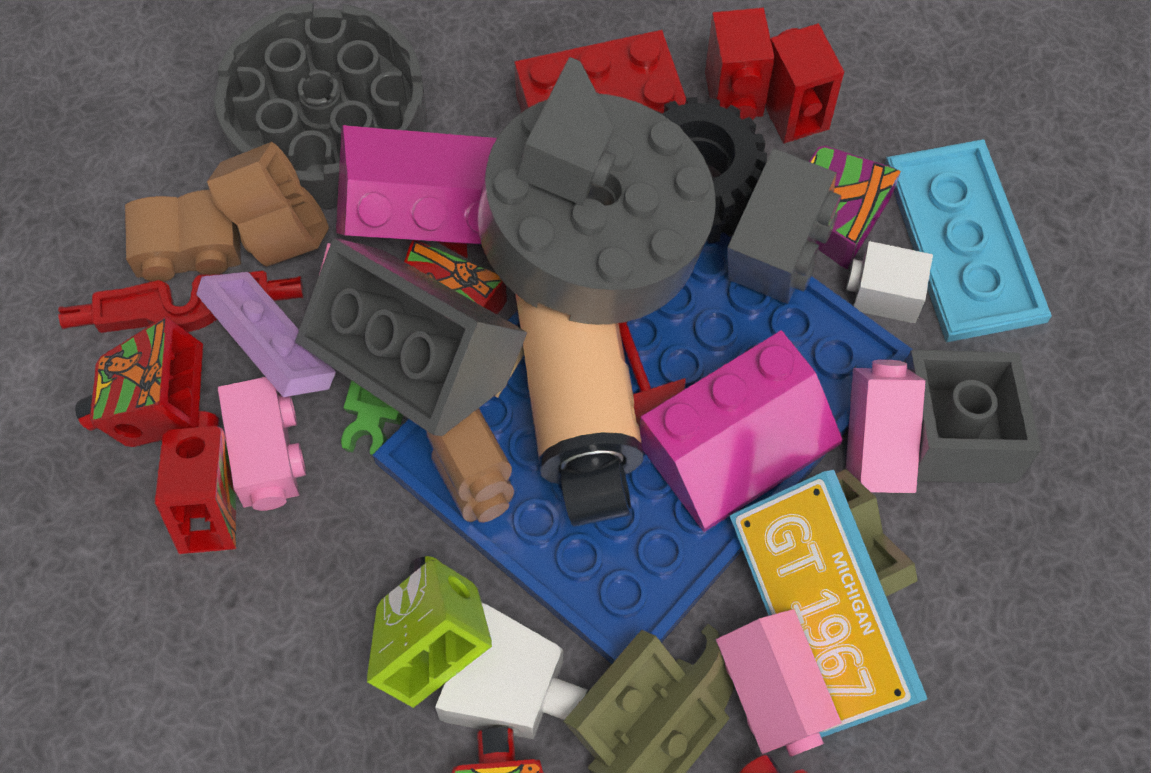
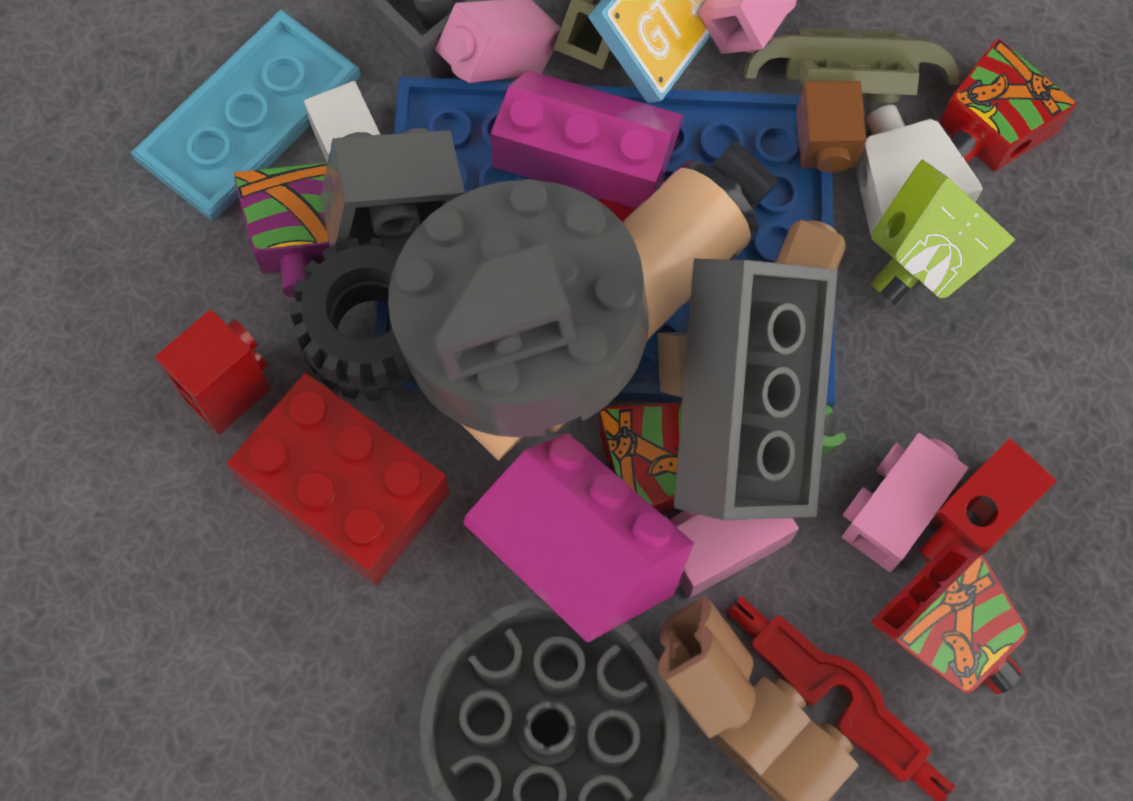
camera: 130 degrees left, 5 degrees up
(264, 333) = (825, 564): lavender plate -> none
(592, 622) = (831, 125): none -> dark orange brick
(803, 83) = (189, 288): red brick -> none

